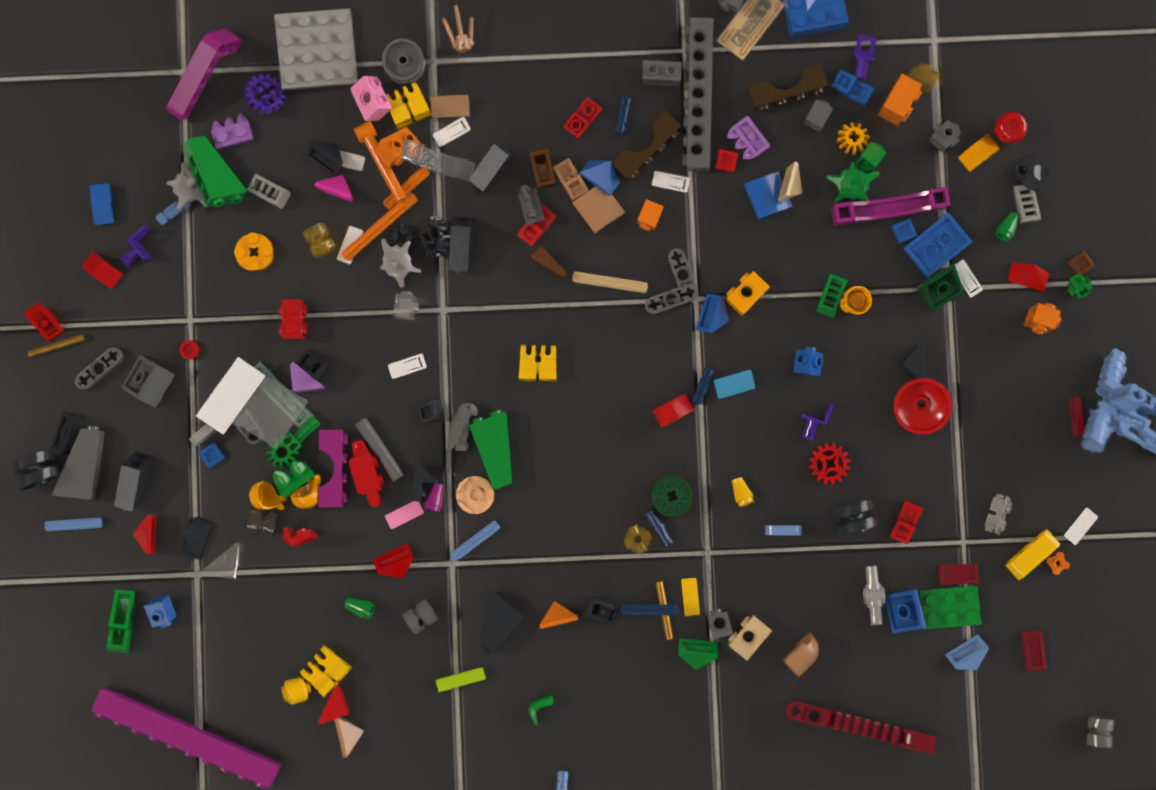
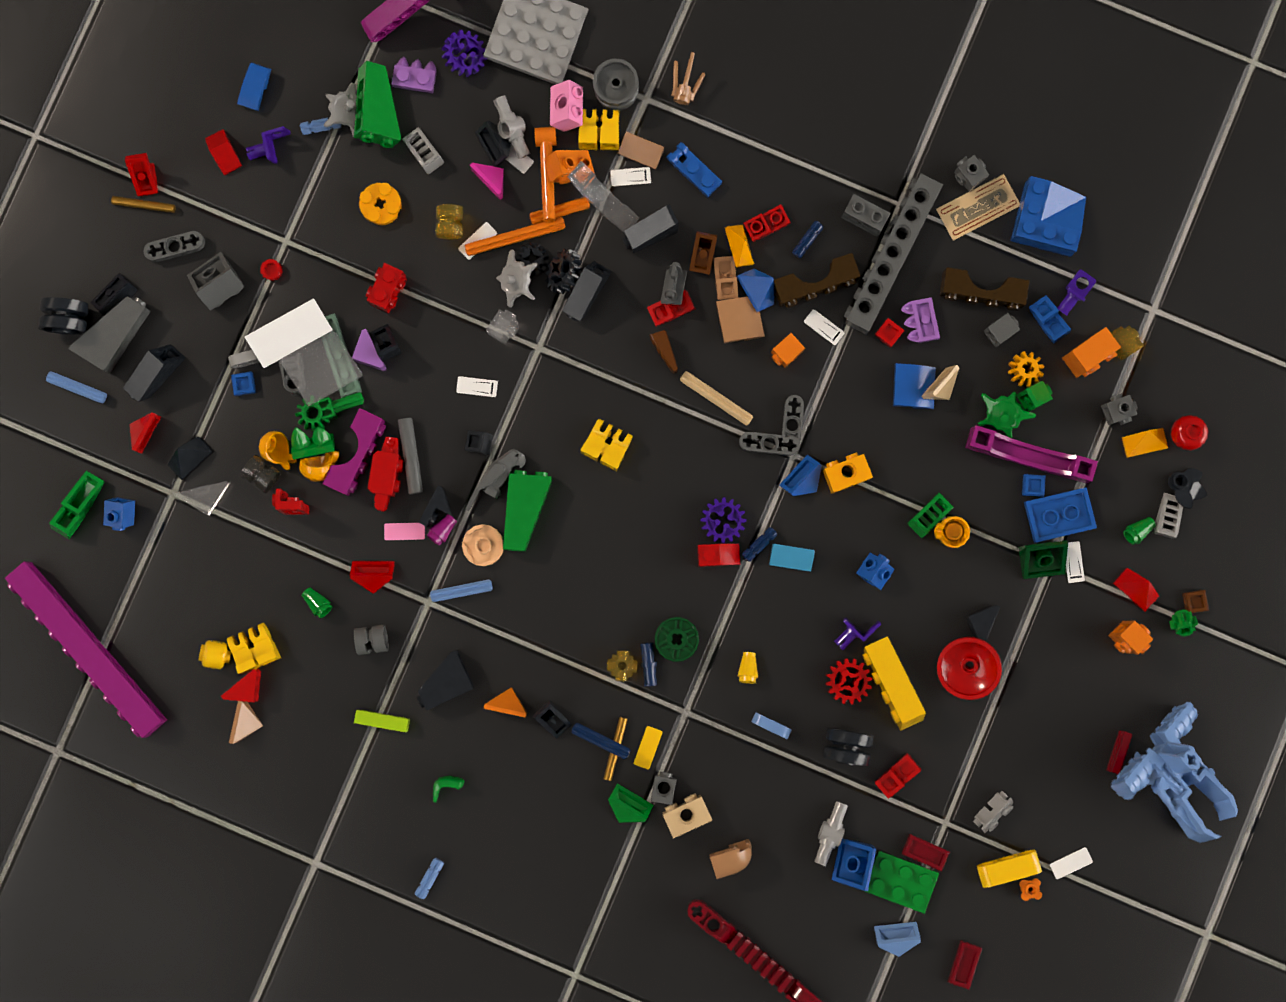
camera: 20 degrees right, 0 degrees up
(333, 137) = (511, 127): none -> light grey pin
(502, 102) = (694, 170): none -> blue plate
(569, 147) = (739, 245): none -> light orange slope
(671, 372) = (718, 508): none -> dark purple gear
(867, 447) = (894, 682): none -> yellow wedge

